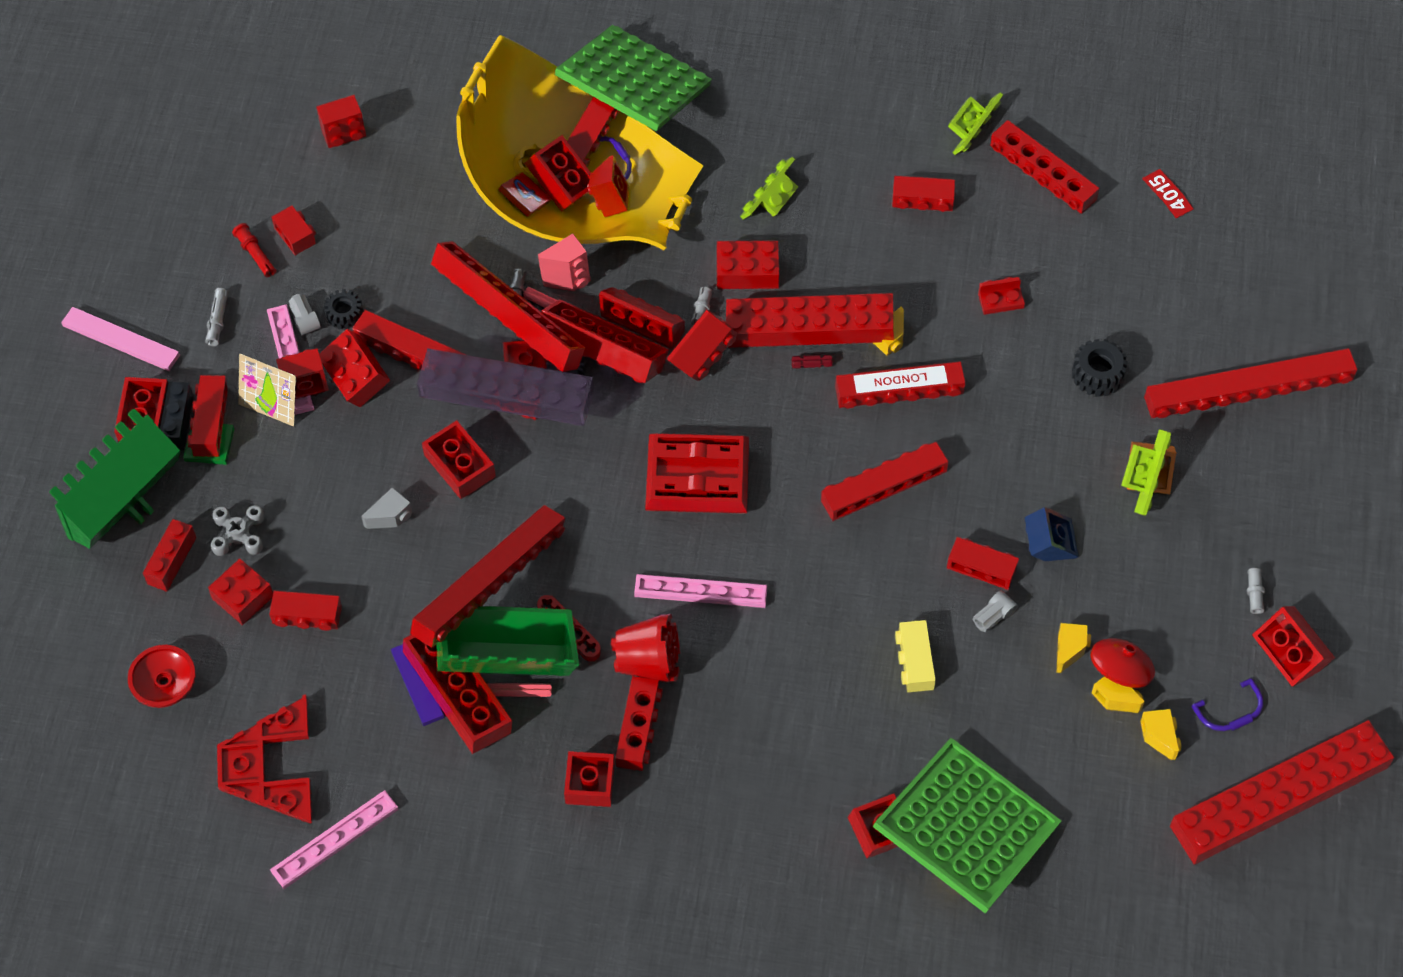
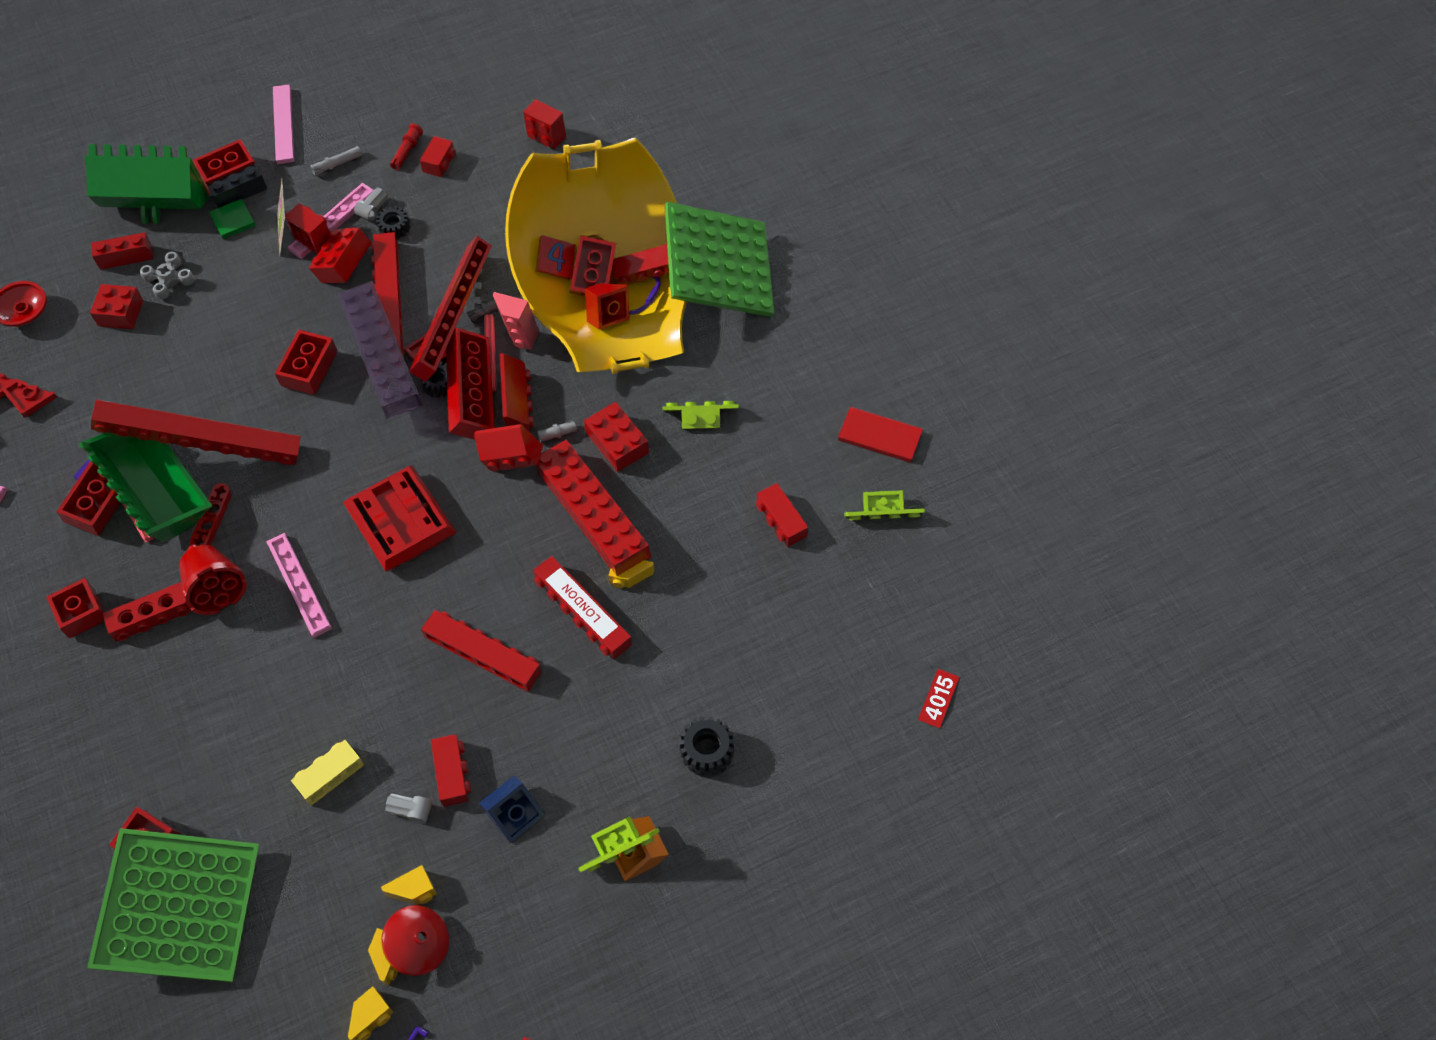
camera: 55 degrees right, 0 degrees up
(208, 416) = (246, 203): red brick -> none
(305, 610) = (124, 352): red brick -> none
(388, 511) = (239, 348): light grey slope -> none
(811, 361) = (562, 534): dark red axle -> none
(897, 81) = (880, 434): none -> red tile
(1001, 295) = (727, 630): red bracket -> none
(1044, 167) = (879, 633): red brick -> none
(1250, 383) = (786, 883): red brick -> none
(1255, 591) = (568, 1013): light grey pin -> none

